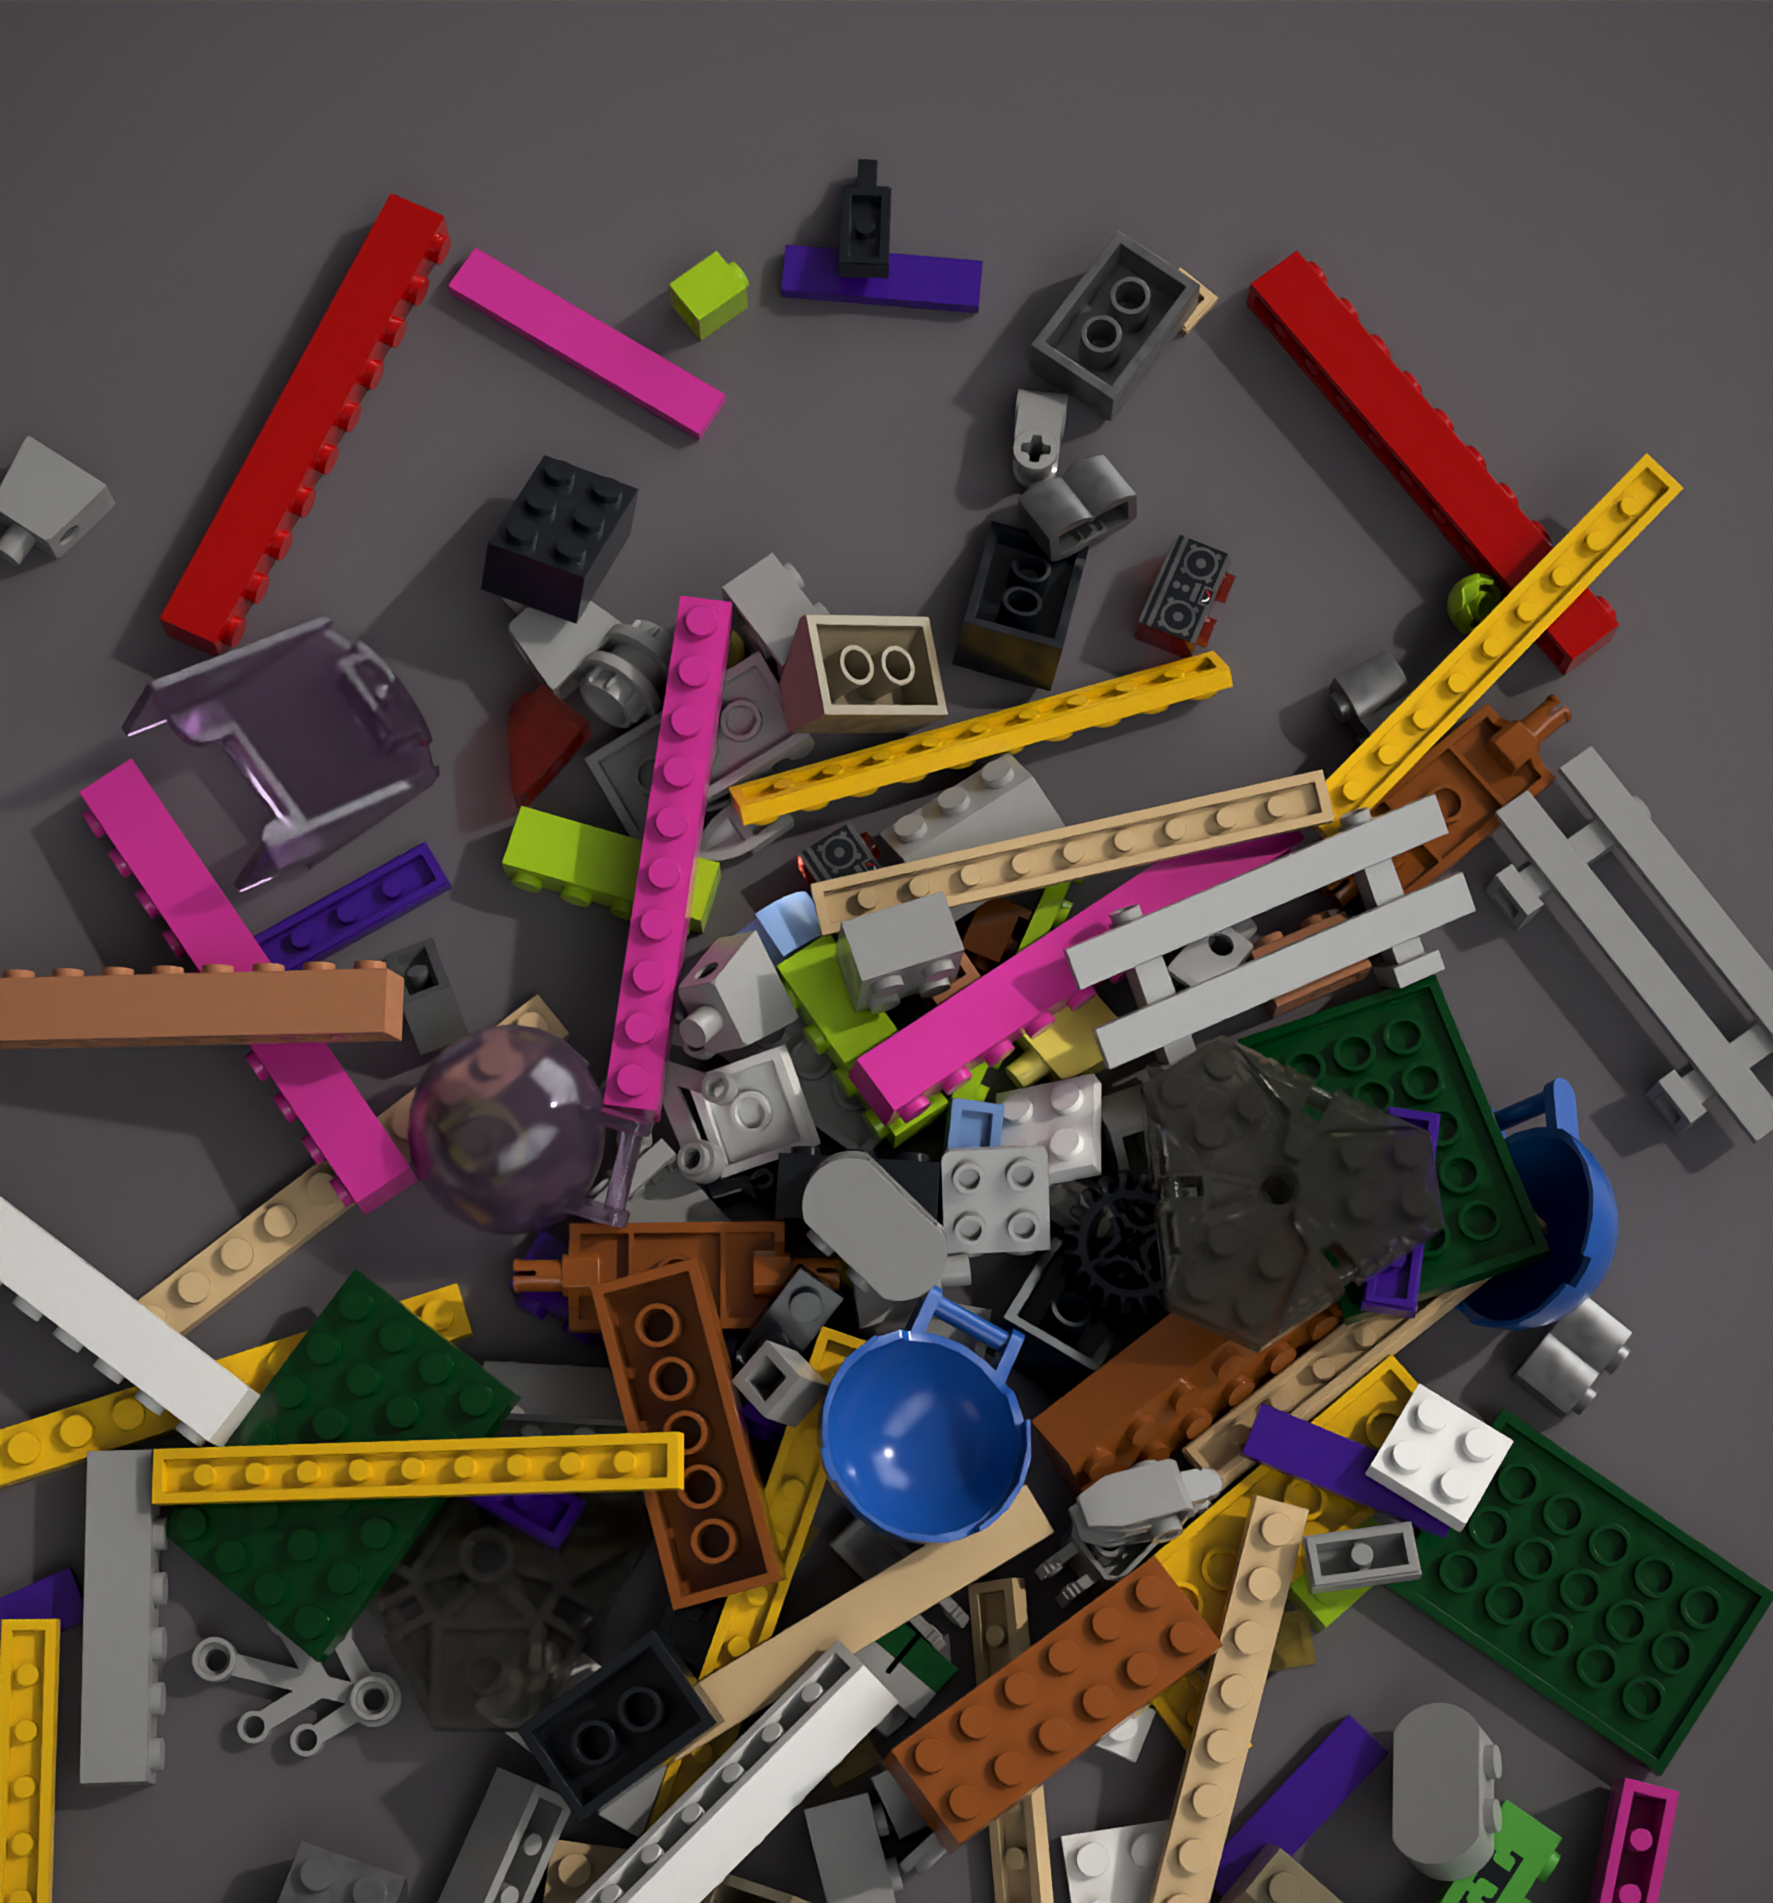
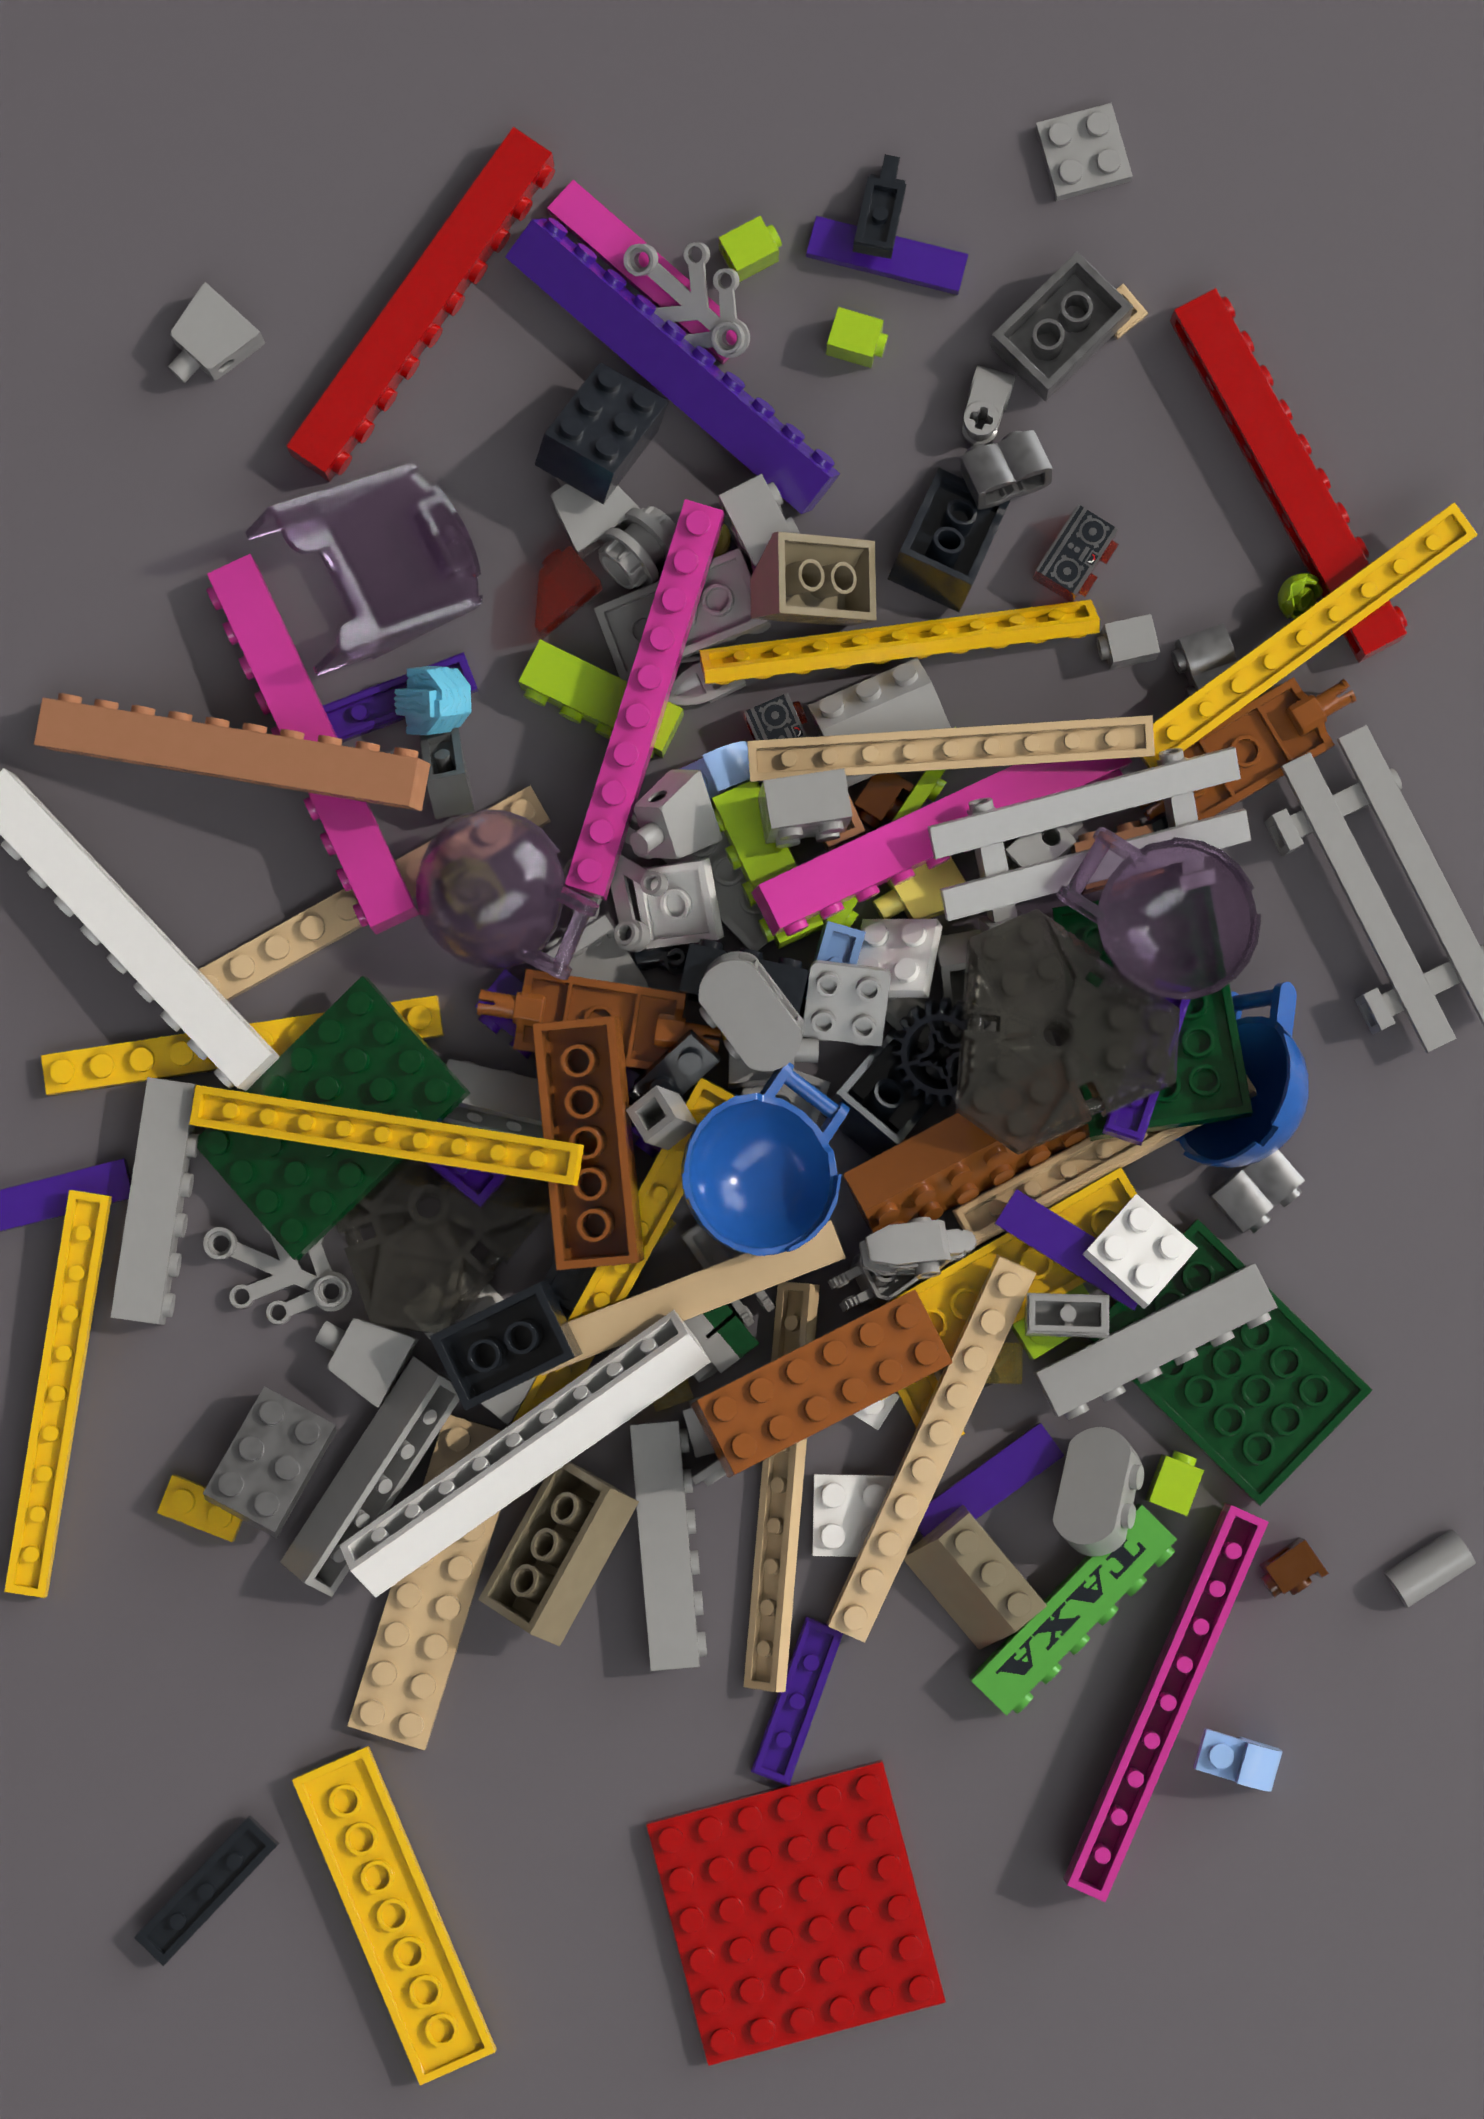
camera: 15 degrees right, 10 degrees up
(396, 905) = (433, 700): none -> medium azure hair
(435, 1778) = (367, 1356): none -> light grey torso
(635, 445) = (672, 364): none -> dark purple brick
(650, 370) = (695, 302): none -> light grey plant
(861, 380) = (856, 337): none -> lime brick
(1102, 122) = (1083, 152): none -> light grey plate
(1271, 693) = (1128, 642): none -> light grey brick
(1394, 1012) = (1170, 915): none -> clear purple windscreen
(1480, 1575) = (1155, 1340): none -> light grey brick
(1543, 1764) = (1175, 1482): none -> lime brick
(1720, 1853) = (1291, 1568): none -> reddish brown brick

